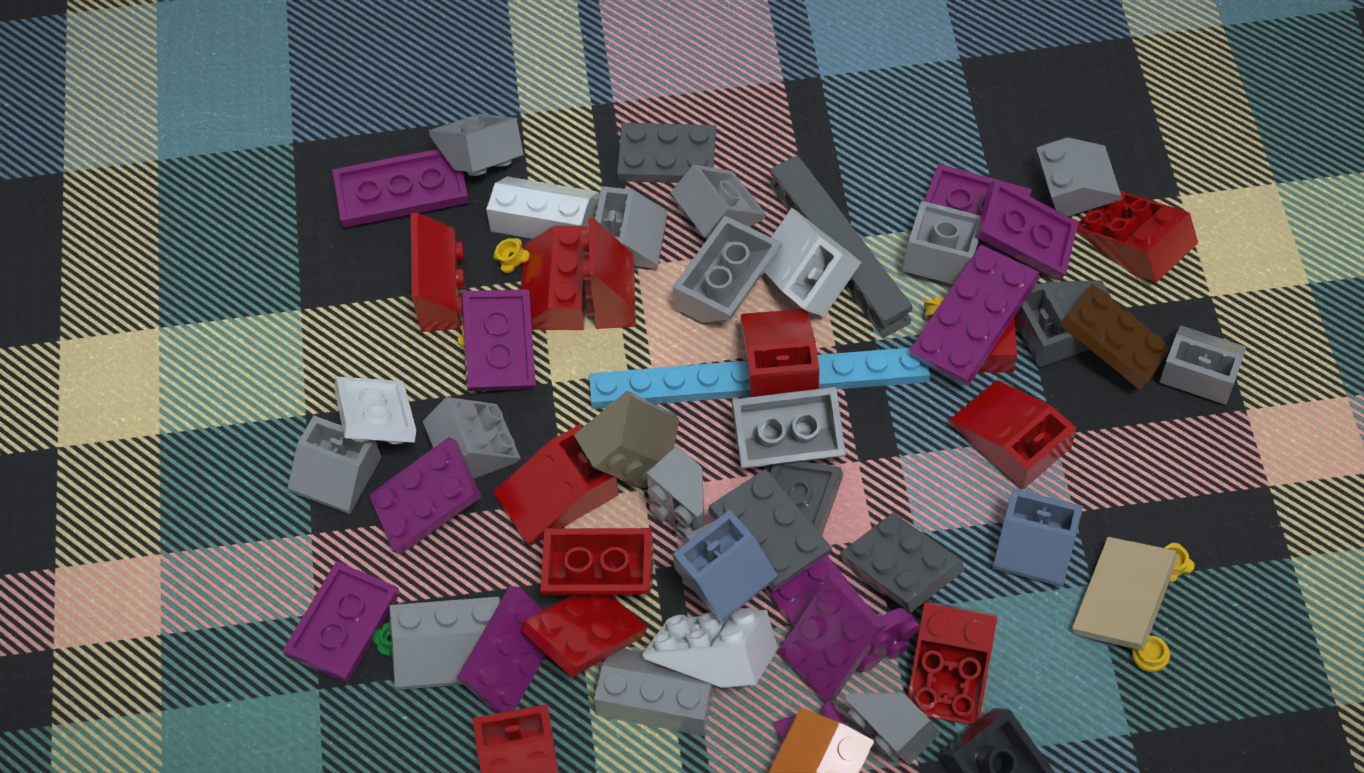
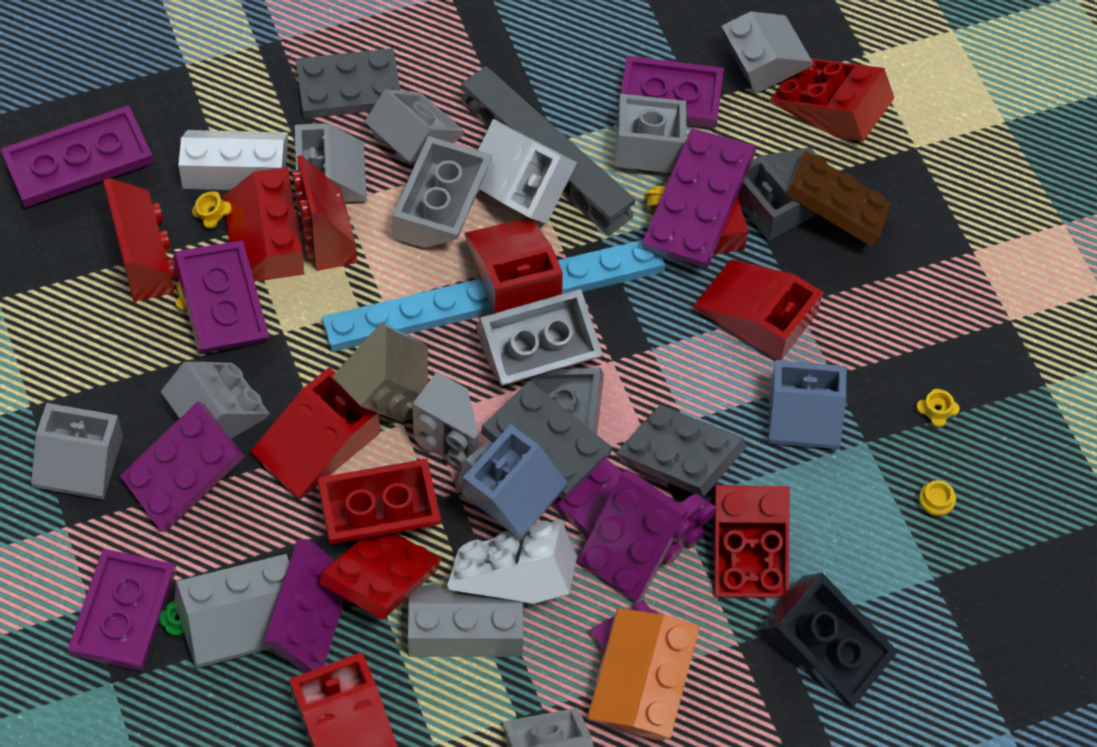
camera: 20 degrees left, 0 degrees up
(374, 410) = (109, 387): white plate -> none
(479, 142) = (152, 98): light grey slope -> none
(899, 723) = (712, 604): light grey slope -> none
(1027, 229) = (729, 107): magenta plate -> none
(1125, 593) = (901, 444): tan tile -> none
(1203, 364) = (926, 214): light grey slope -> none

